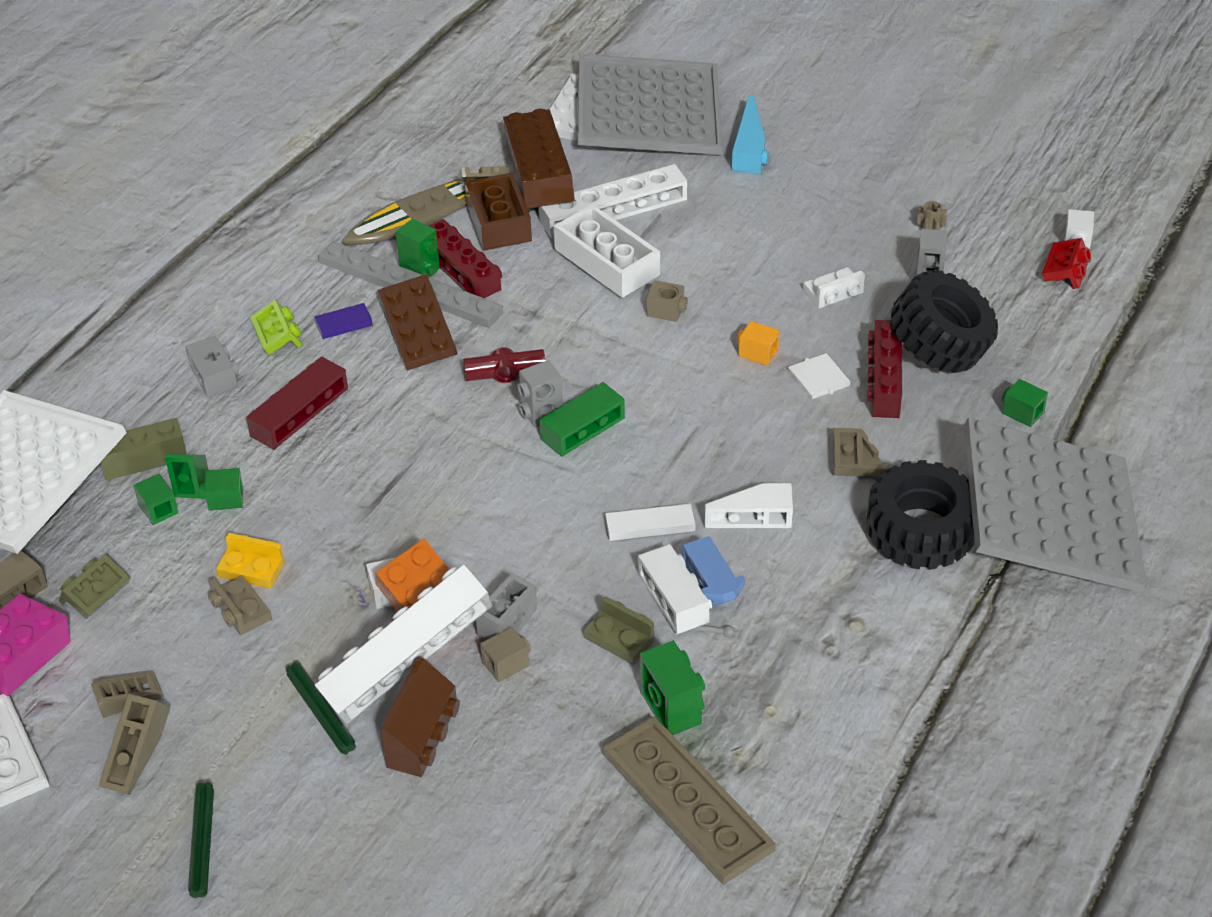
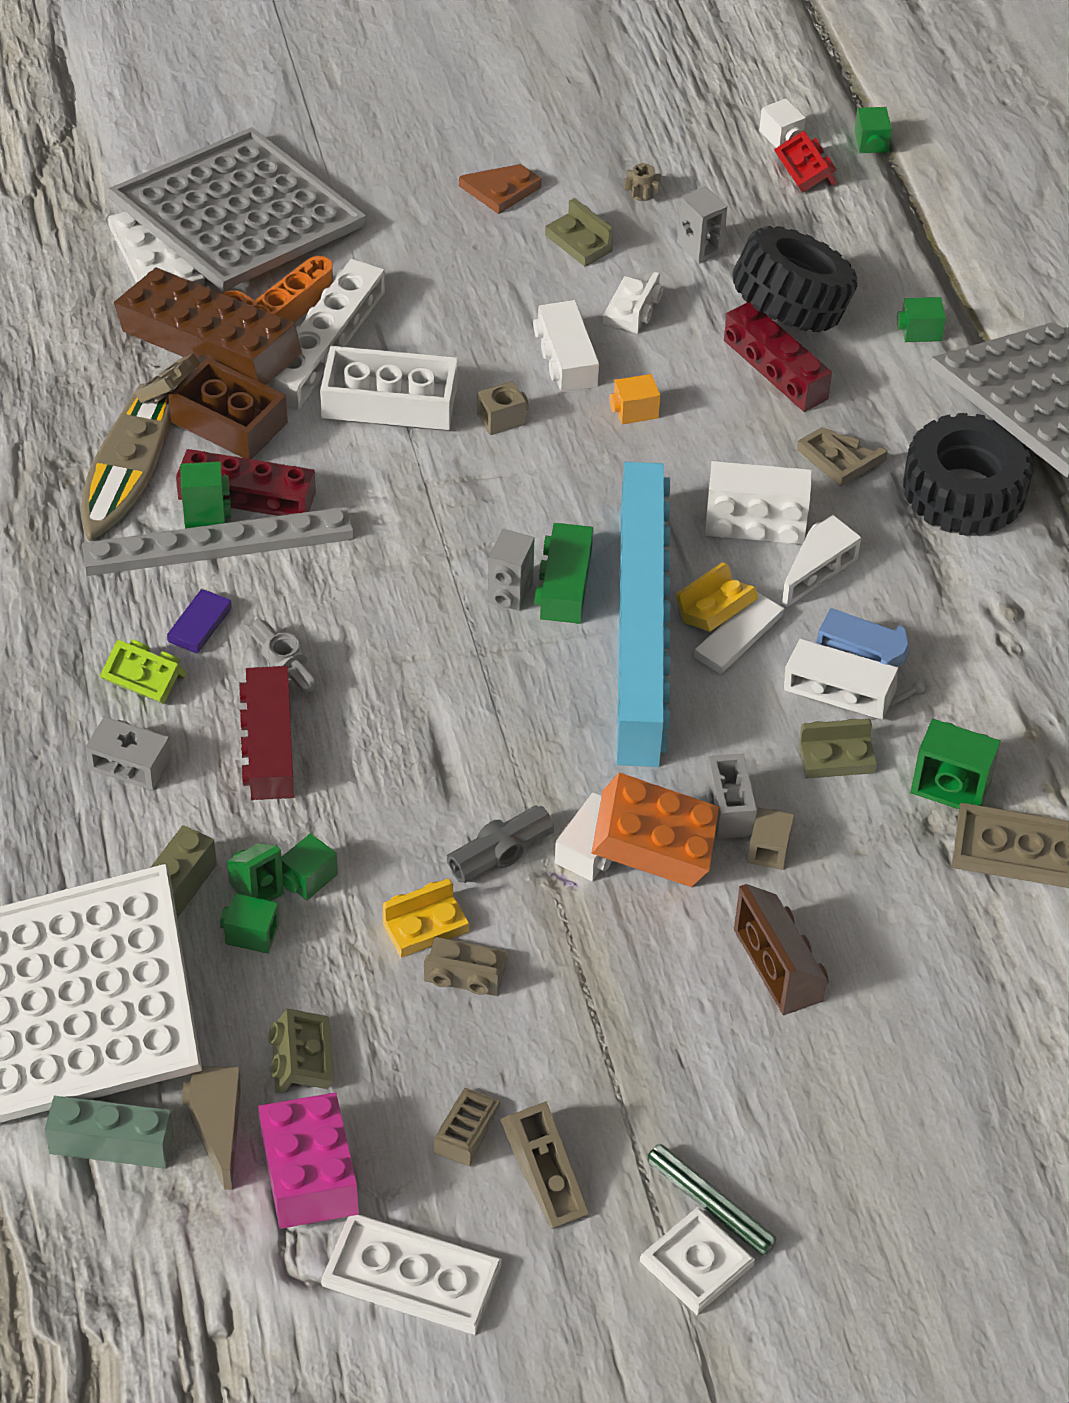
camera: 45 degrees left, 5 degrees up
(149, 868) = (697, 1260): none -> white tile
(320, 708) = (664, 1005): dark green axle -> none
(343, 548) = (500, 843): none -> dark grey piece
(359, 366) = (284, 650): none -> light grey axle
(393, 650) = (713, 885): white brick -> none
(417, 322) = (285, 574): reddish brown plate -> none
(501, 365) = (426, 566): dark red piece -> none
(586, 467) = (642, 615): none -> medium azure brick
(604, 169) = (295, 292): none -> orange beam
(654, 488) = (714, 598): none -> yellow bracket
(749, 147) = (384, 194): medium azure slope -> none
(749, 444) = (758, 502): none -> white brick
(754, 287) = (566, 346): none -> white brick
(819, 376) = (716, 400): white piece -> none
(838, 175) = (501, 186): none -> dark orange wing
(852, 229) = (581, 233): none -> olive bracket
(1143, 265) = (873, 130): none -> green brick

